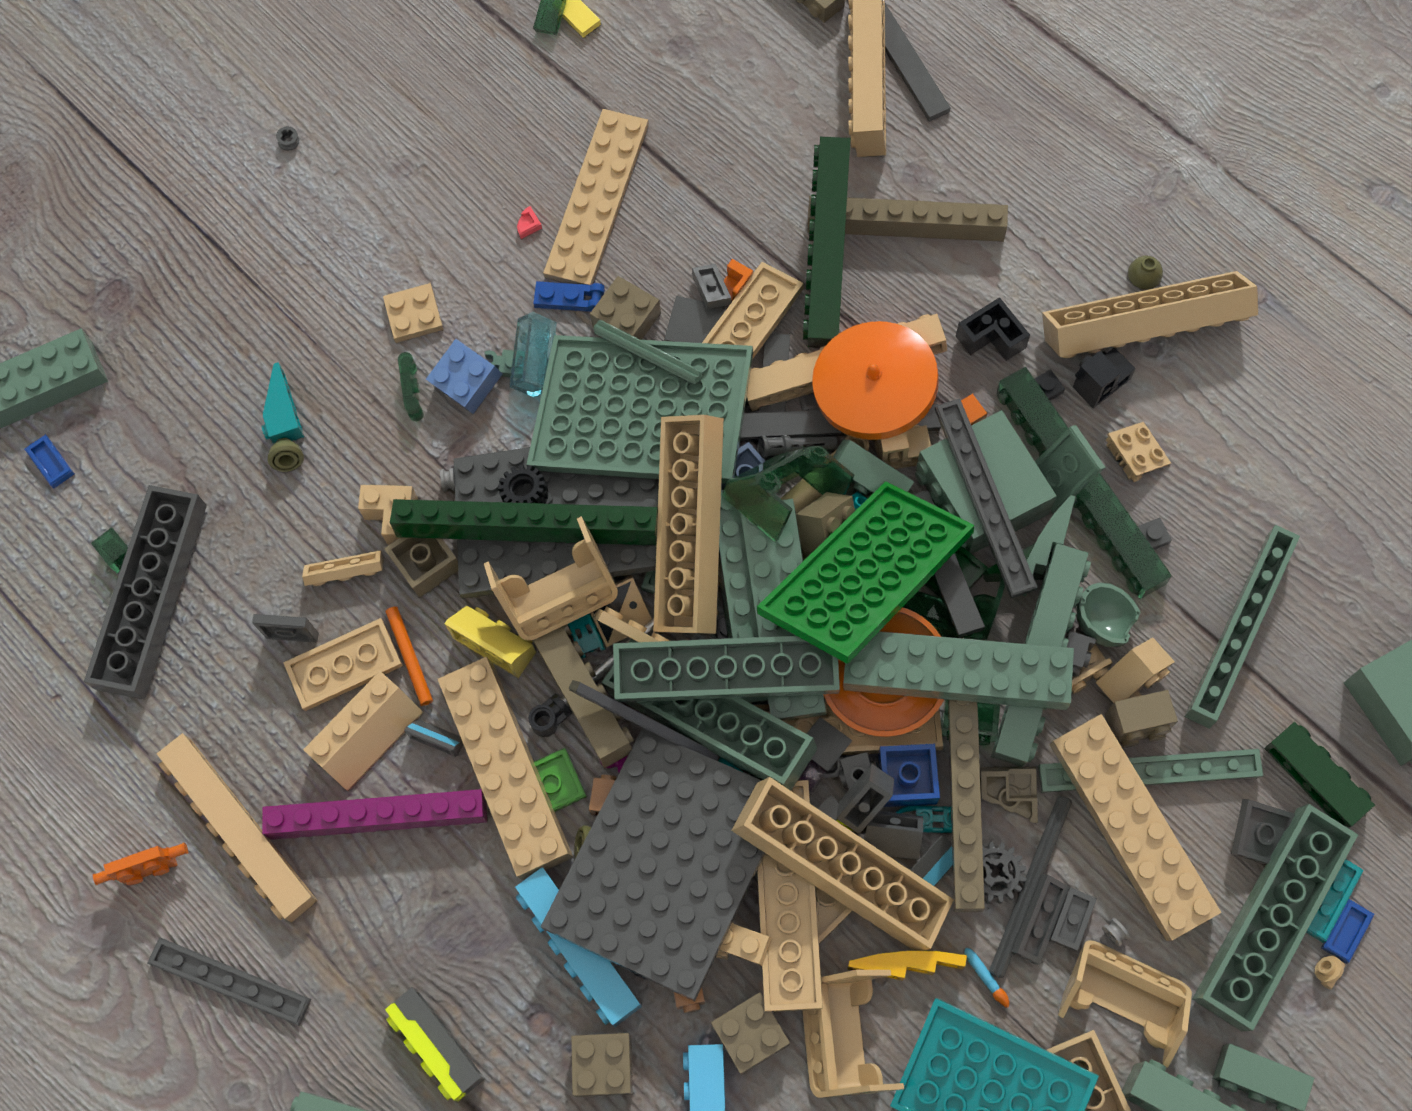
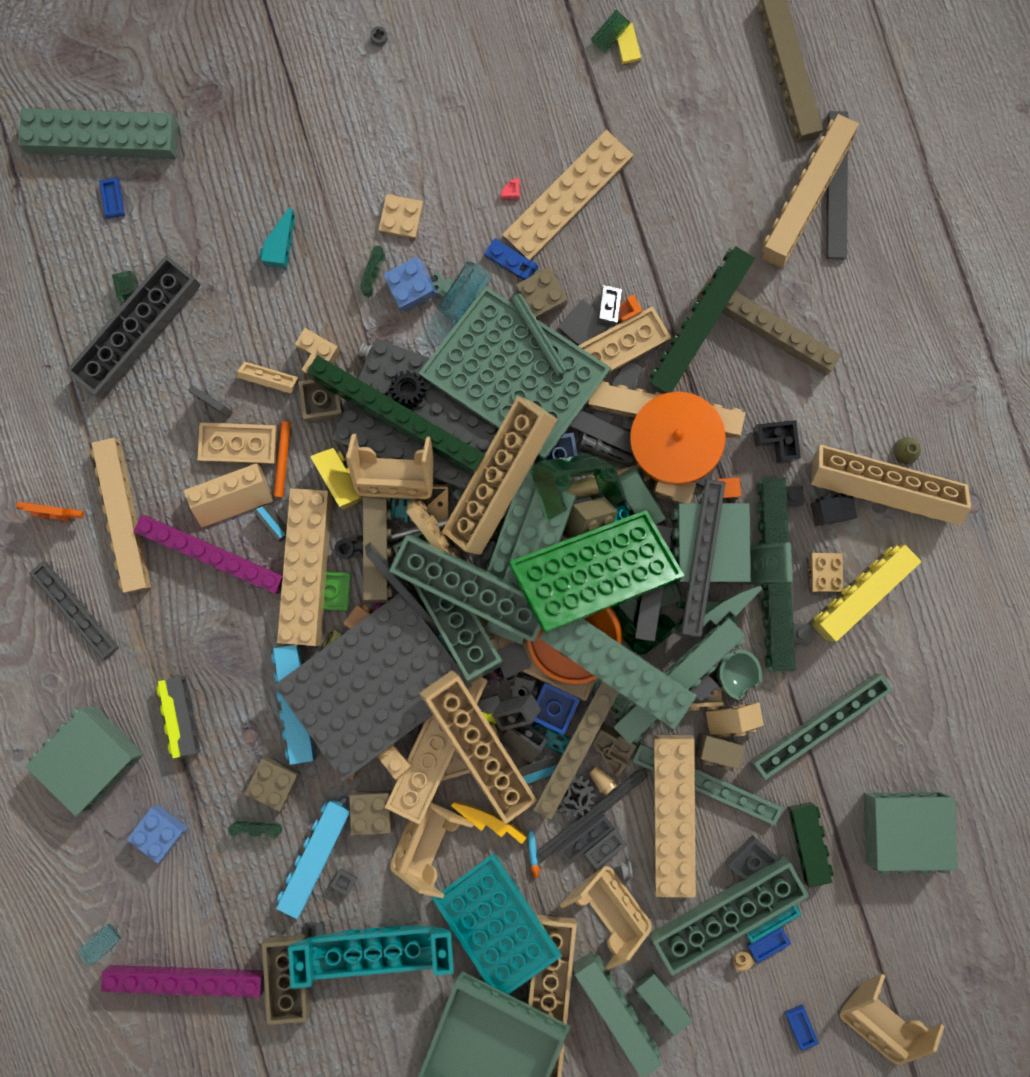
camera: 20 degrees right, 15 degrees up
(285, 455) = (267, 277): olive brick -> none
(1020, 835) = (602, 780): none -> tan cone
(1196, 446) = (865, 592): none -> light yellow brick

